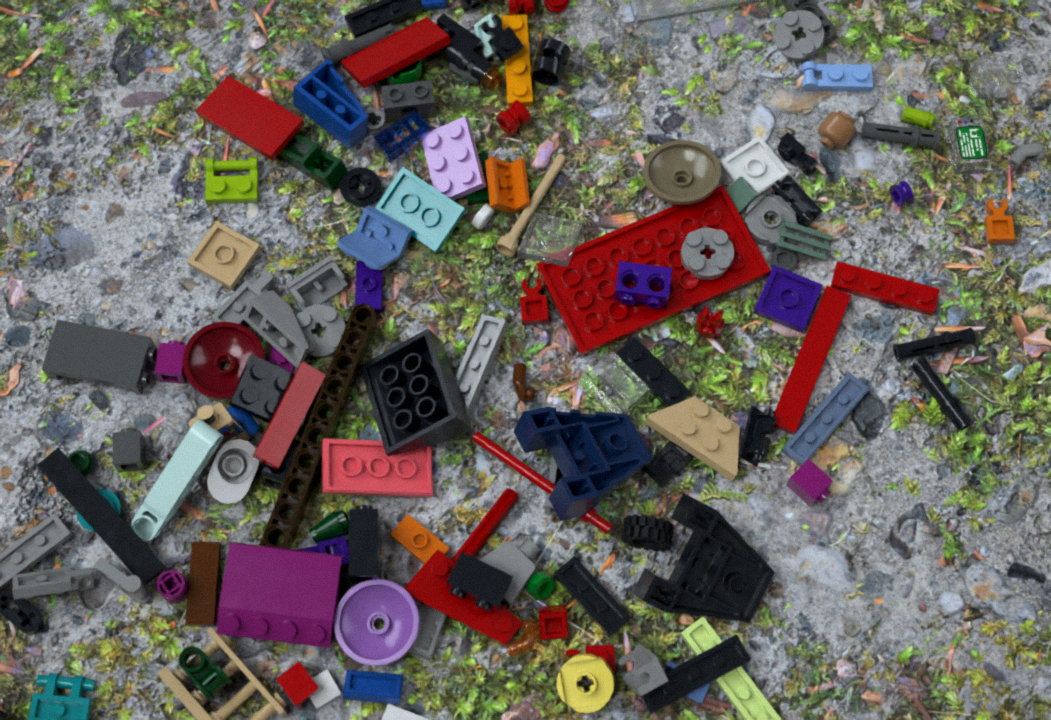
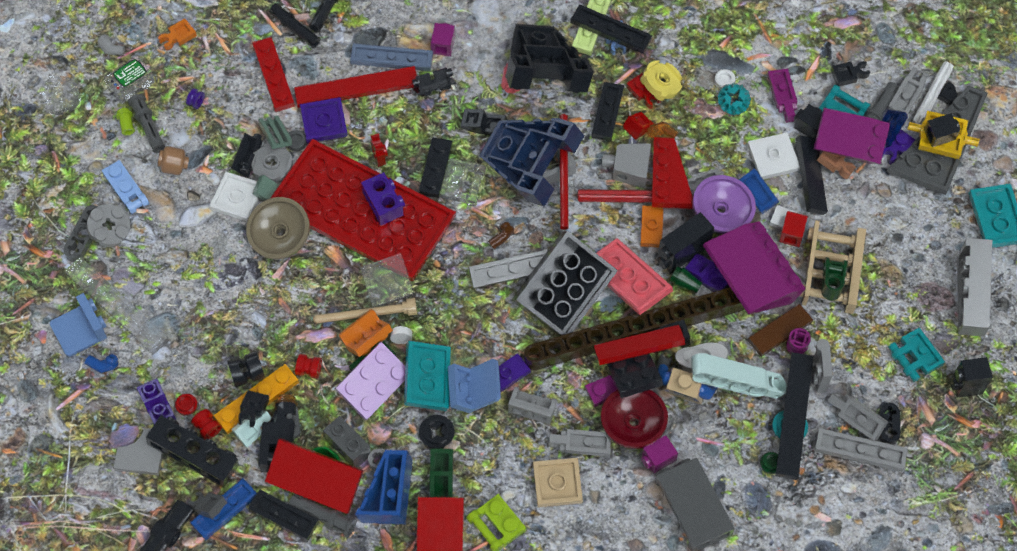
camera: 125 degrees left, 5 degrees down
(129, 450) = (738, 435): dark grey brick -> none
(277, 325) = (582, 402): light grey slope -> none
(327, 318) = (569, 370): light grey plate -> none
(406, 141) = (375, 436): clear blue slope -> none
(478, 583) = (656, 160): black brick -> none
(533, 306) = (443, 262): red plate -> none
(540, 586) = (623, 139): green tile -> none
(646, 673) = (633, 51): light grey hinge -> none
(647, 532) = (546, 100): black tyre -> none
(701, 433) = (457, 112): tan wing -> none
(709, 239) = (324, 168): light grey plate -> none
(795, 153) = (209, 178): black plate -> none

